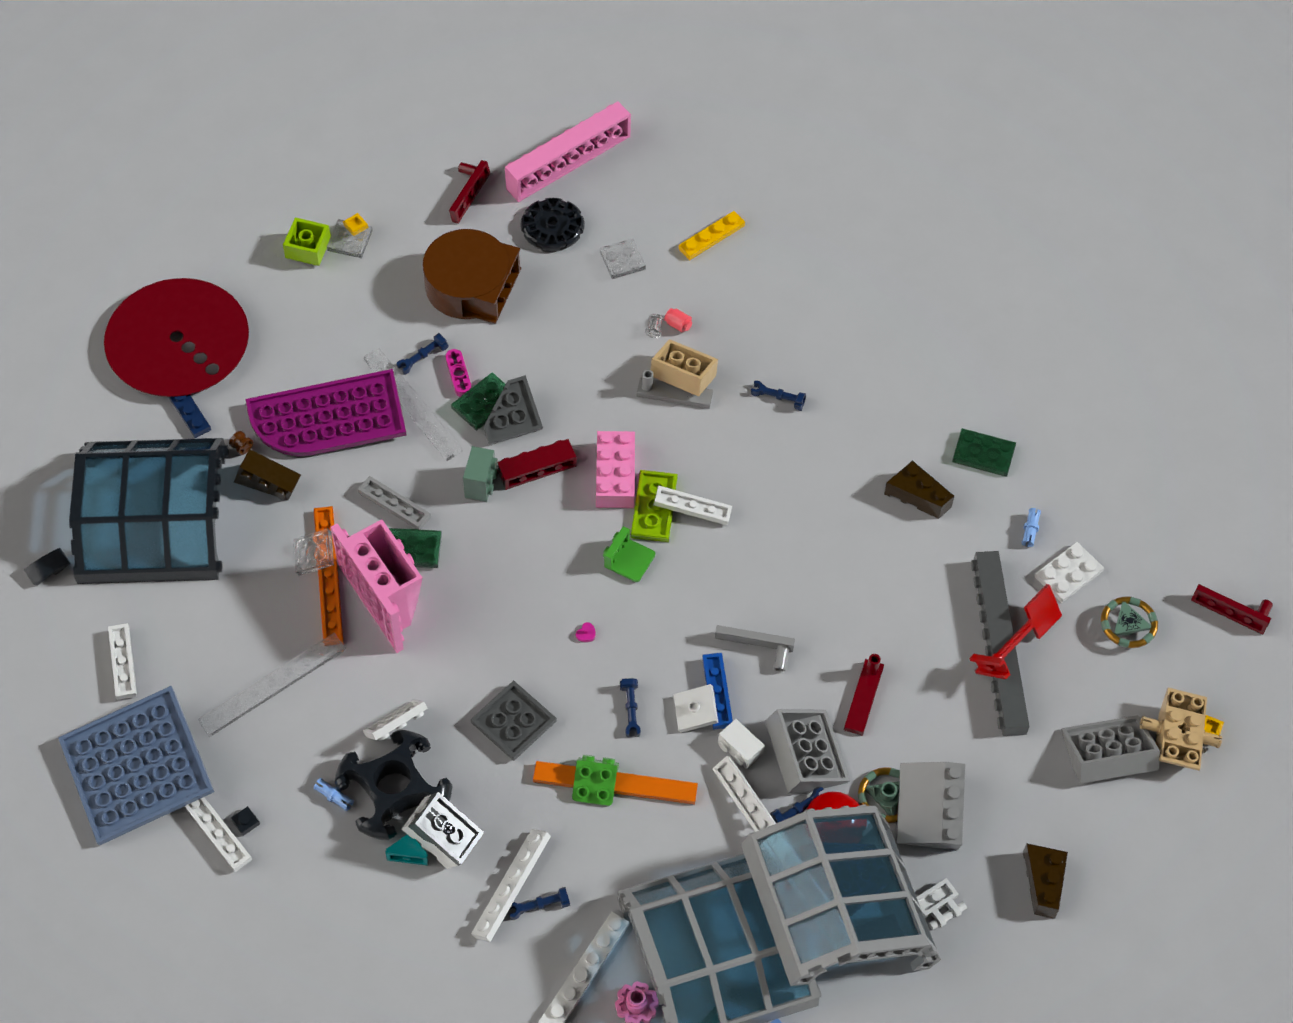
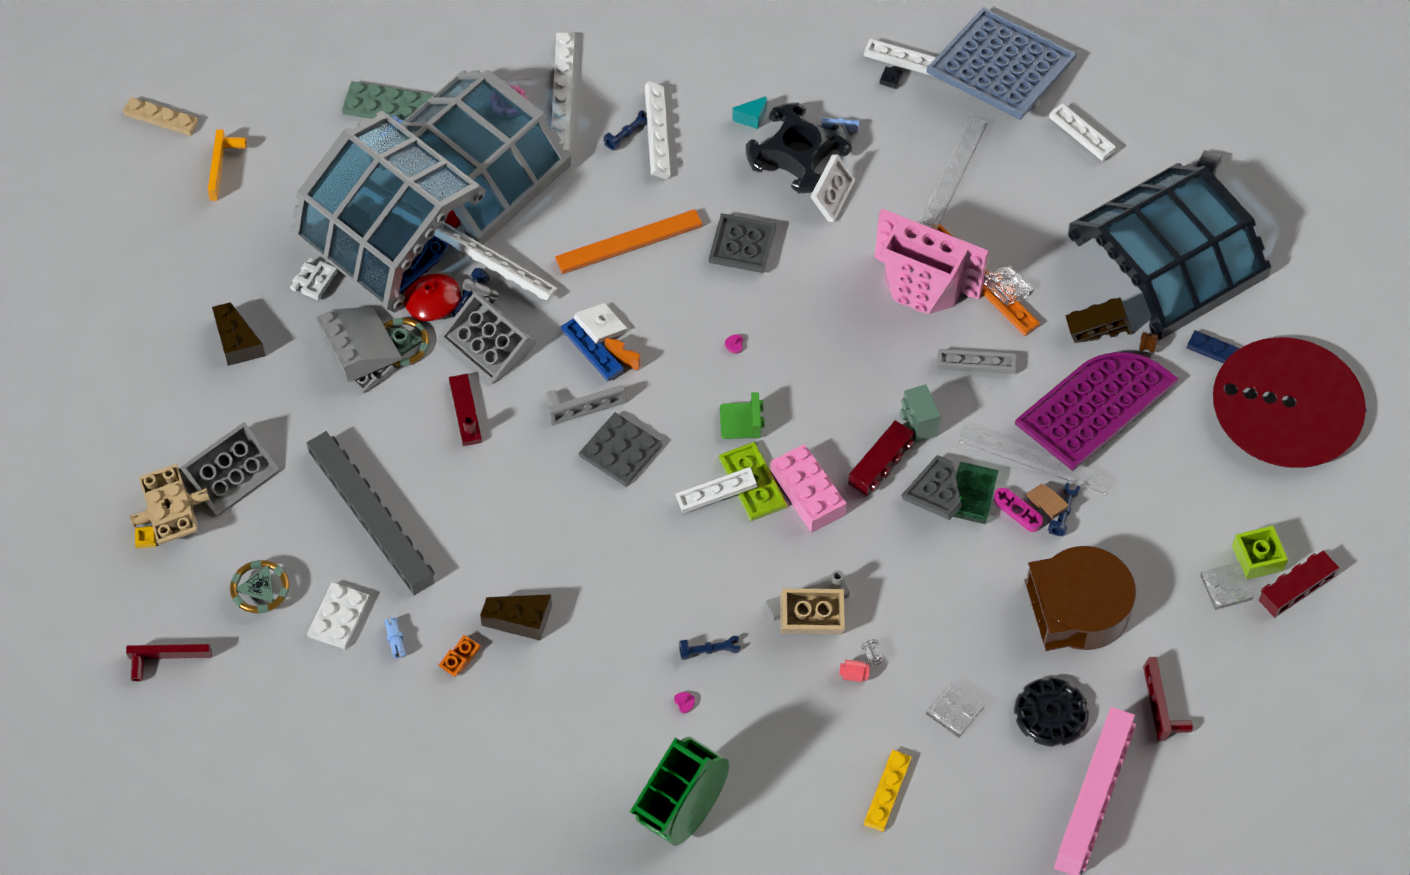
camera: 150 degrees right, 0 degrees up
(283, 211) = (1298, 583): none -> dark red brick
(355, 224) = (1231, 595): yellow tile -> none
(421, 545) = (931, 332): clear green plate -> none
(432, 362) = (1048, 500): none -> medium nougat slope
(443, 830) = (731, 122): piece -> none
(595, 780) = (646, 234): bright green bracket -> none
(629, 686) = (667, 316): dark blue piece -> none
(695, 674) = (617, 350): none -> orange slope
(741, 744) = (544, 315): white brick -> none
(748, 590) = (620, 449): none -> dark grey plate
(787, 798) = (480, 289): none -> light grey axle
(822, 368) = (684, 701): none -> dark pink piece
(880, 270) = (681, 790): none -> green brick
(984, 452) = (479, 695): clear green plate -> none
(984, 489) = (460, 656): none -> orange slope
(1042, 615) = (345, 543): red piece -> none

